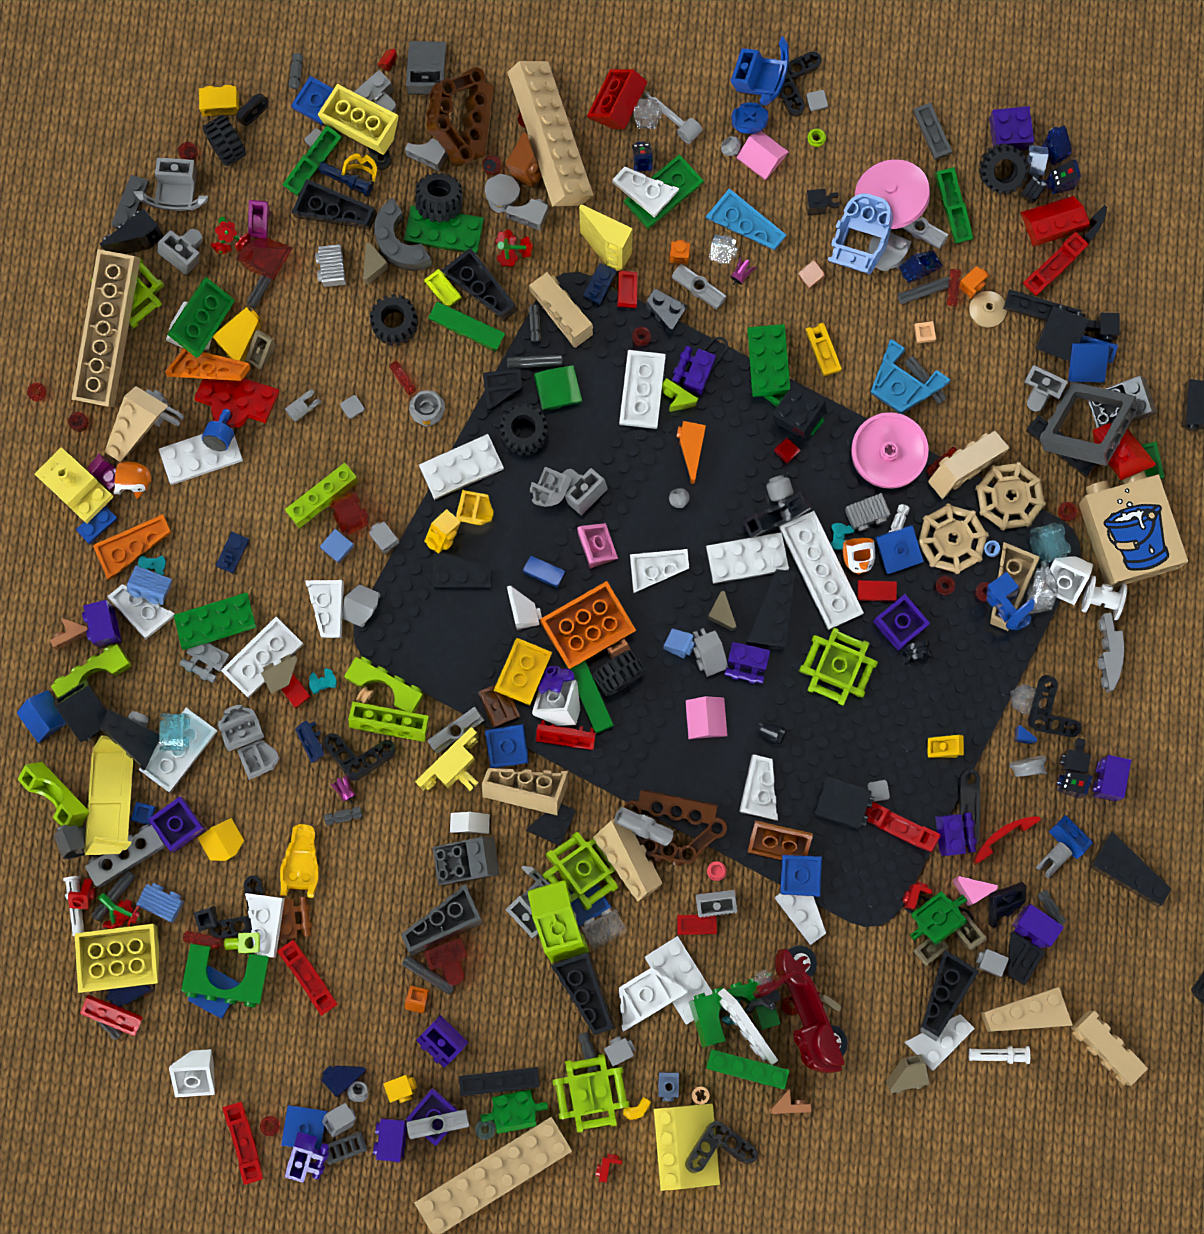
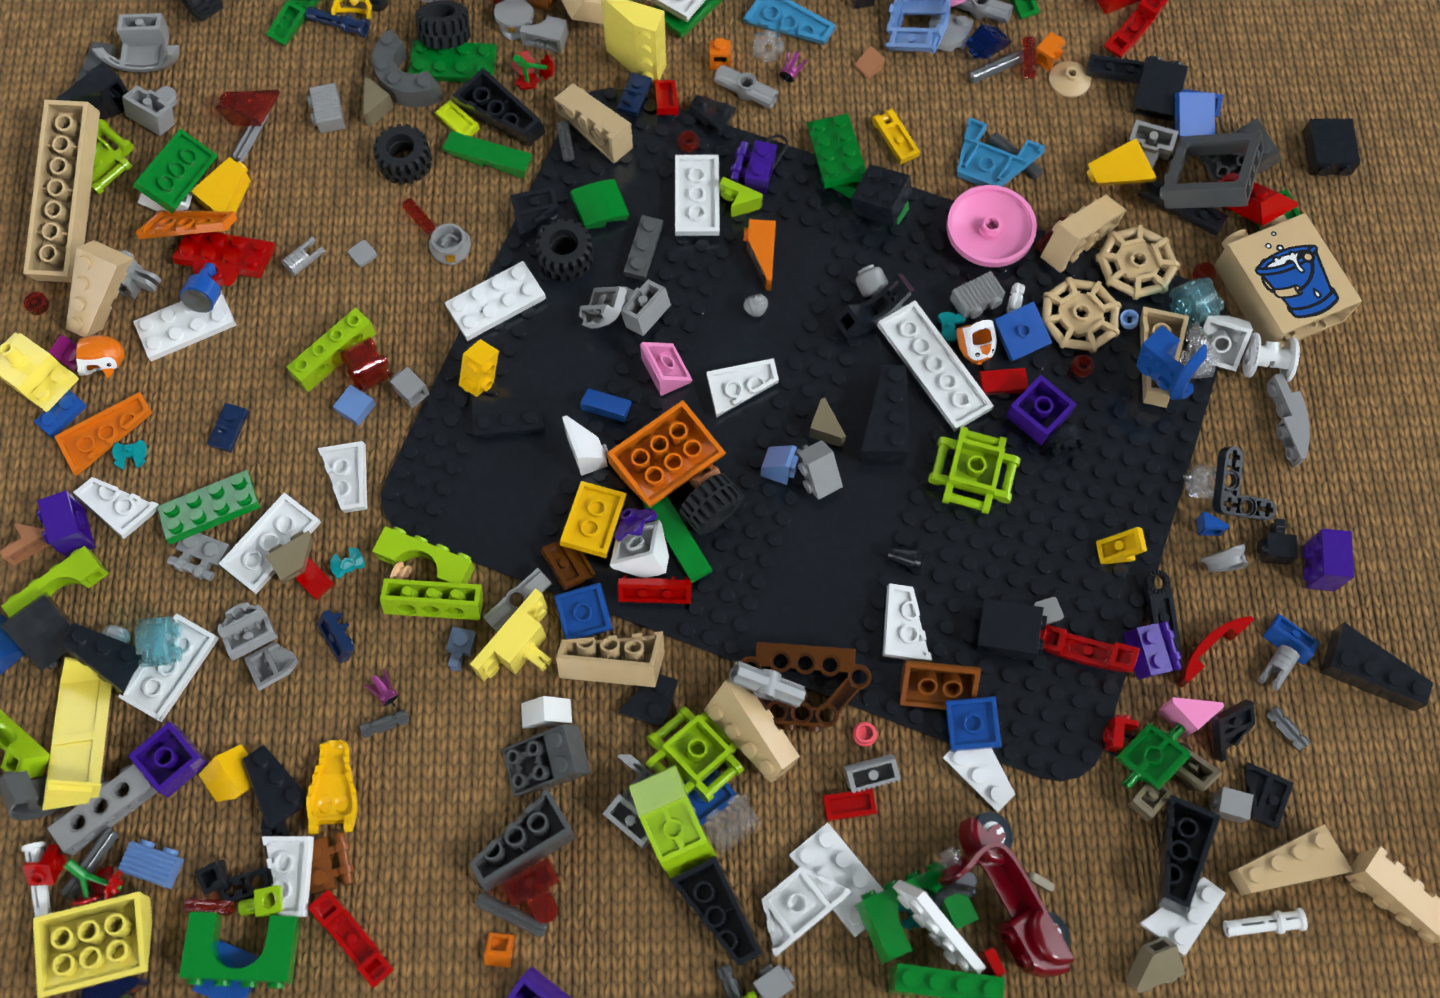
camera: 10 degrees left, 10 degrees down
(142, 813) = (122, 749): blue tile -> none
(148, 585) = (124, 473): medium blue brick -> none
(187, 151) = (159, 8): clear red tile -> none
(226, 232) = (203, 83): red plant -> none
(255, 855) = (273, 786): none -> black wing
(258, 218) = (239, 66): magenta slope -> none
(260, 350) = (250, 200): dark tan slope -> none
(329, 206) = (323, 48): black wedge -> none
(355, 762) = (393, 653): black beam -> none
(360, 605) = (386, 468): light grey slope -> none
(407, 760) = (460, 644): none -> sand blue plate
(474, 508) = (516, 341): yellow slope -> none
(534, 361) = (570, 180): dark grey axle -> none
(591, 432) = (643, 248): none -> dark grey plate
(706, 717) = (824, 548): bright pink slope -> none
(747, 558) = (844, 362): white plate -> none
(749, 658) = (866, 472): dark purple brick -> none
(783, 1057) = (992, 962): none -> red tile
(787, 450) = (872, 242): red slope -> none
(787, 1008) = (984, 900): clear red plate -> none
(924, 332) = (1005, 107): light nougat plate -> none
(980, 595) = (1125, 371): clear red plate -> none
(1014, 406) = (1122, 166): none -> yellow slope
(1037, 926) = (1279, 750): dark purple brick -> none
(1074, 784) = (1285, 573): slope -> none
(1106, 326) = (1204, 78): black brick -> none

